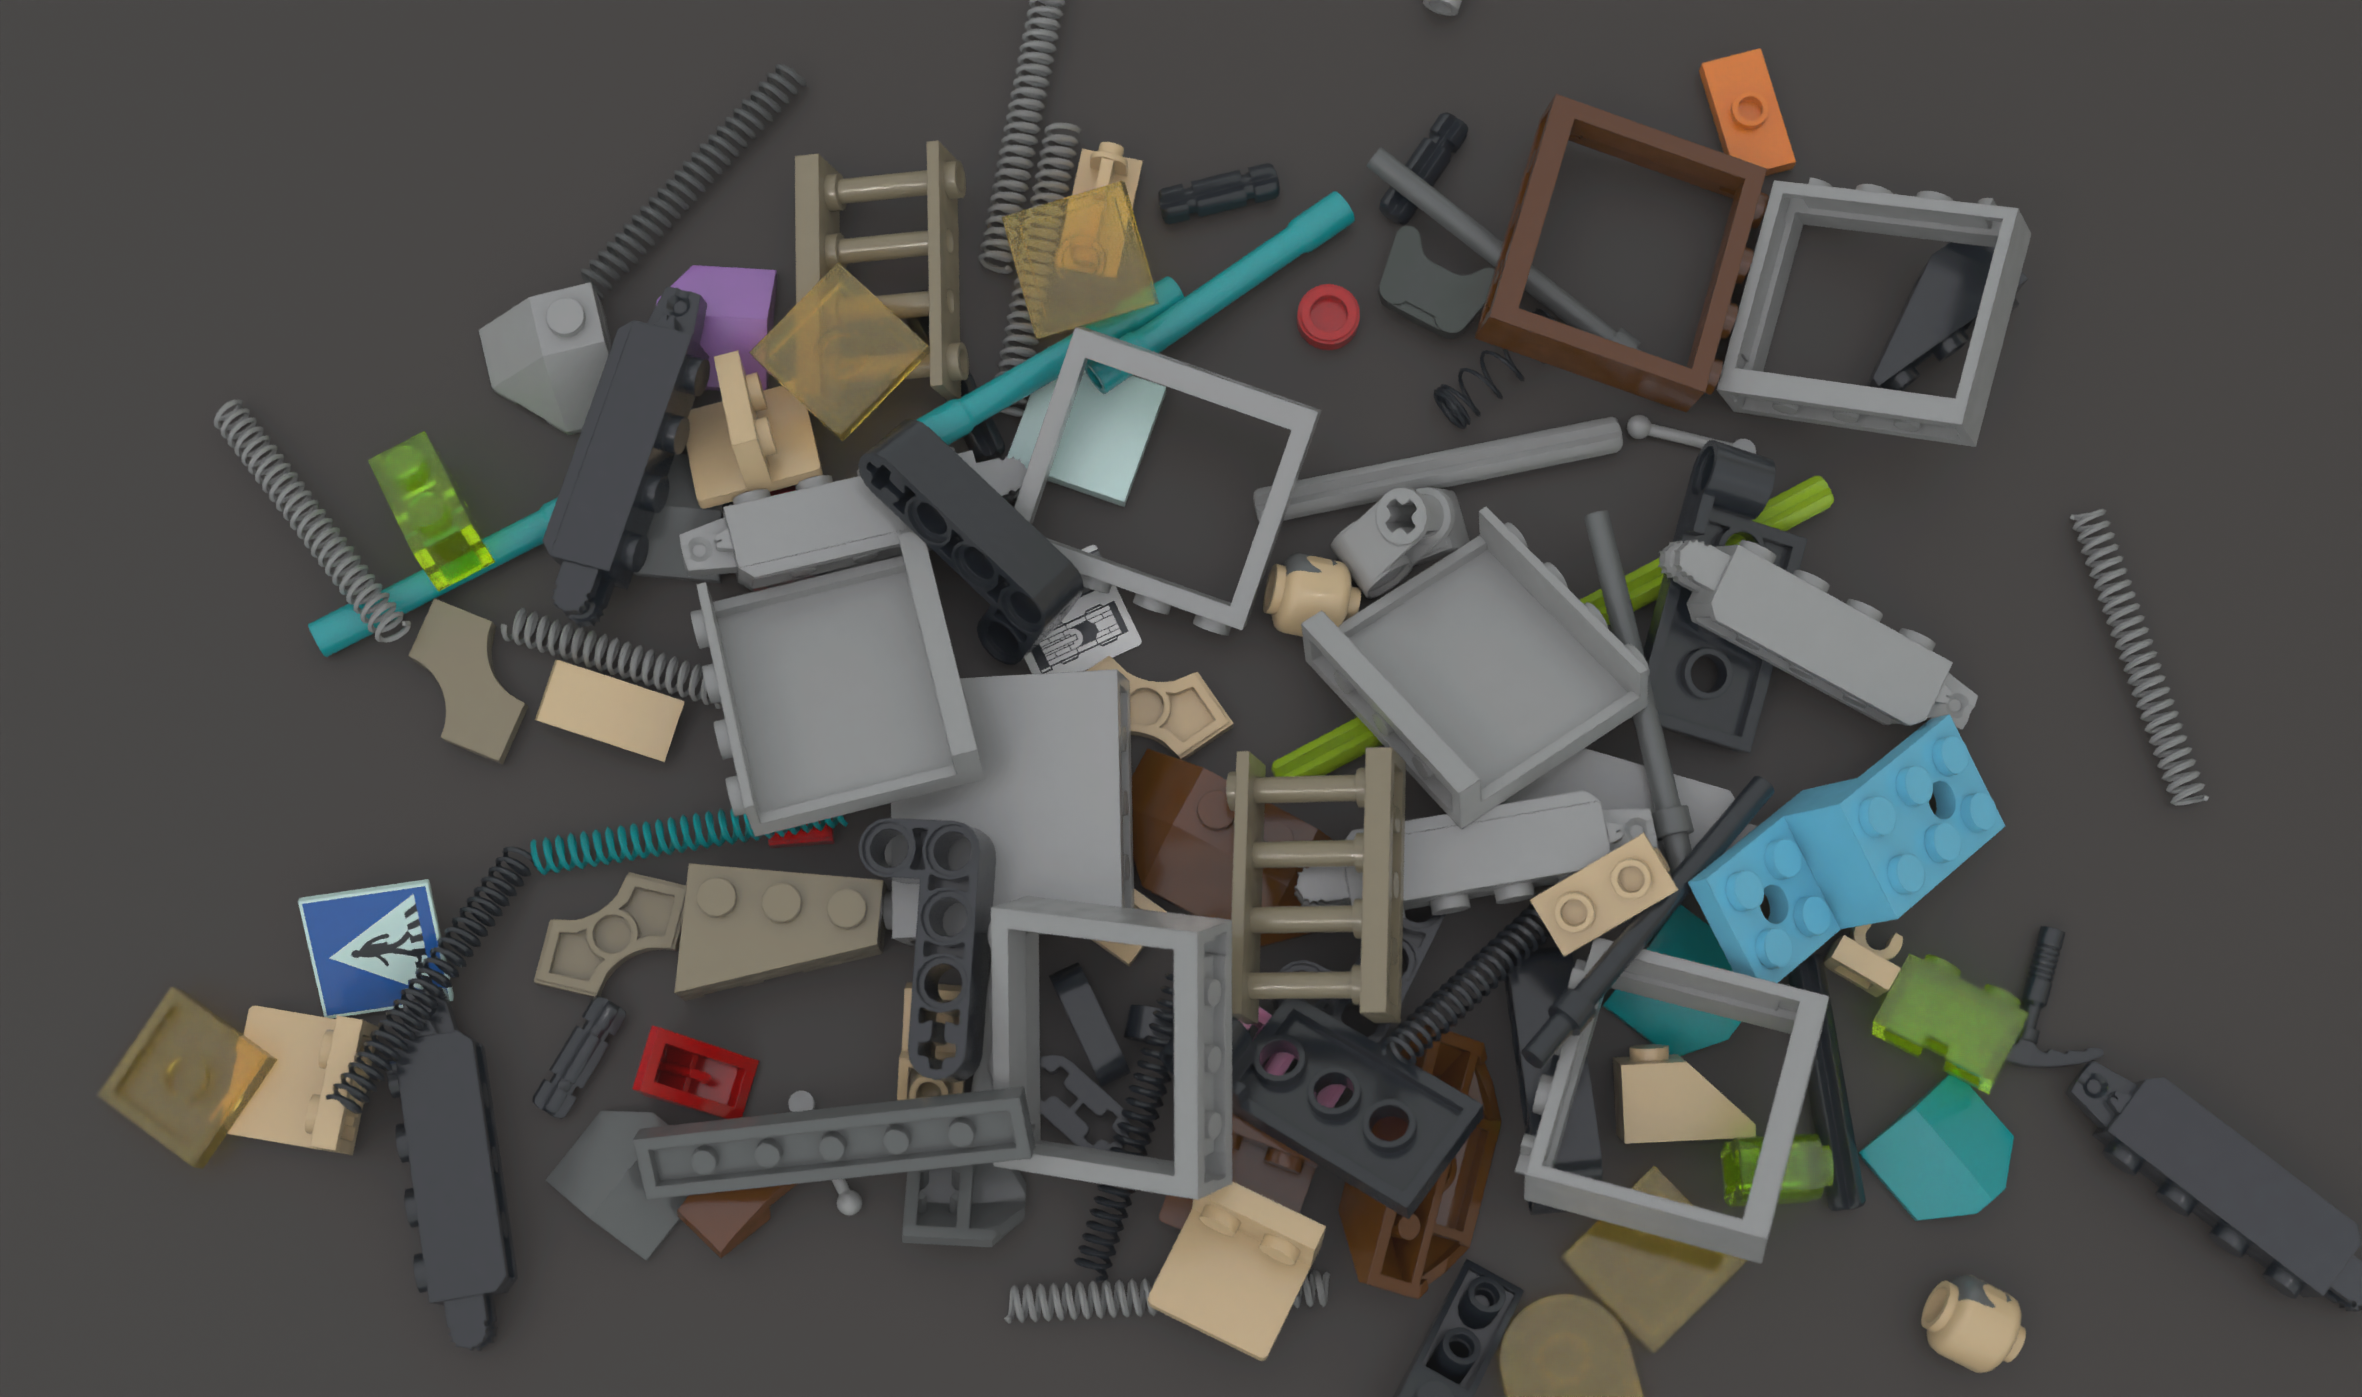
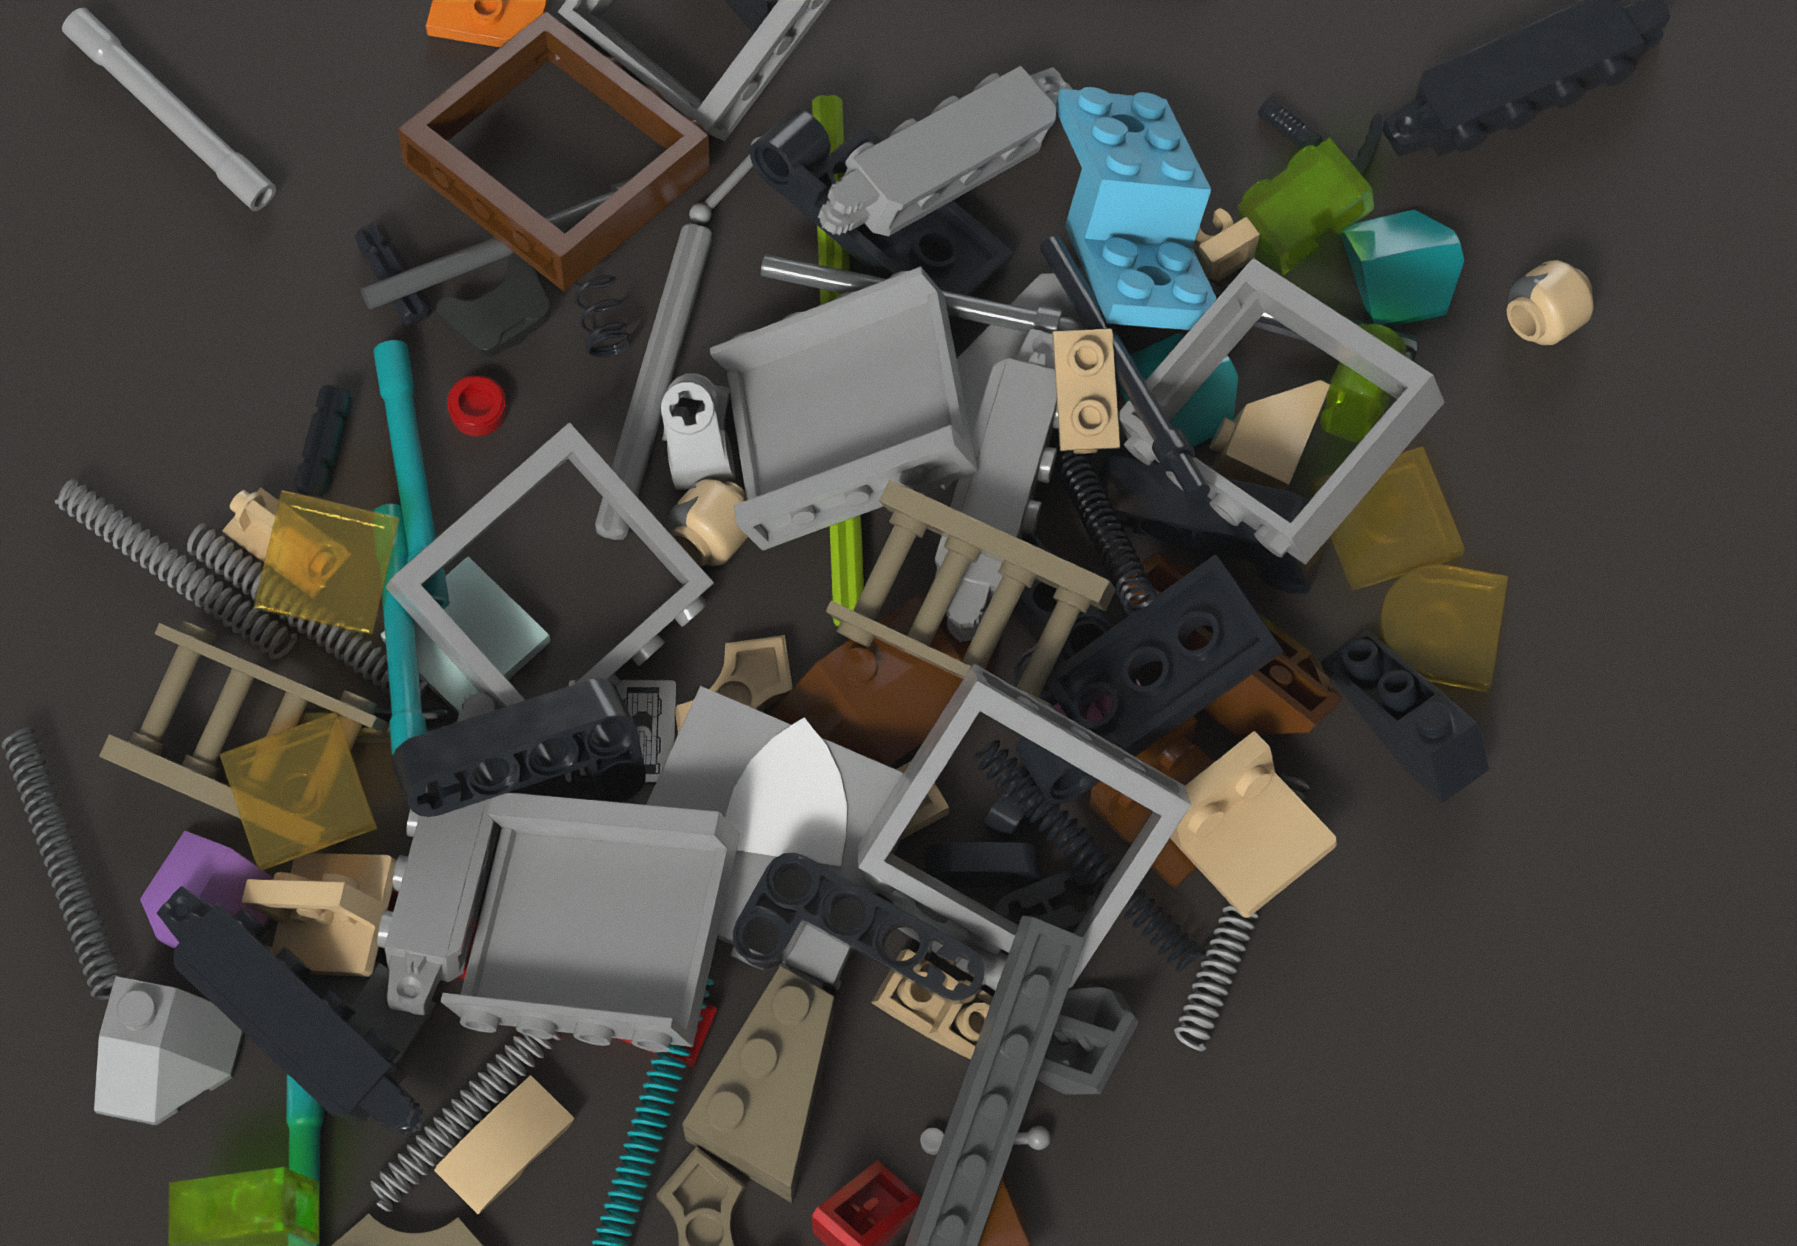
camera: 65 degrees left, 10 degrees down
(1046, 810) = (791, 799): none -> white sticker

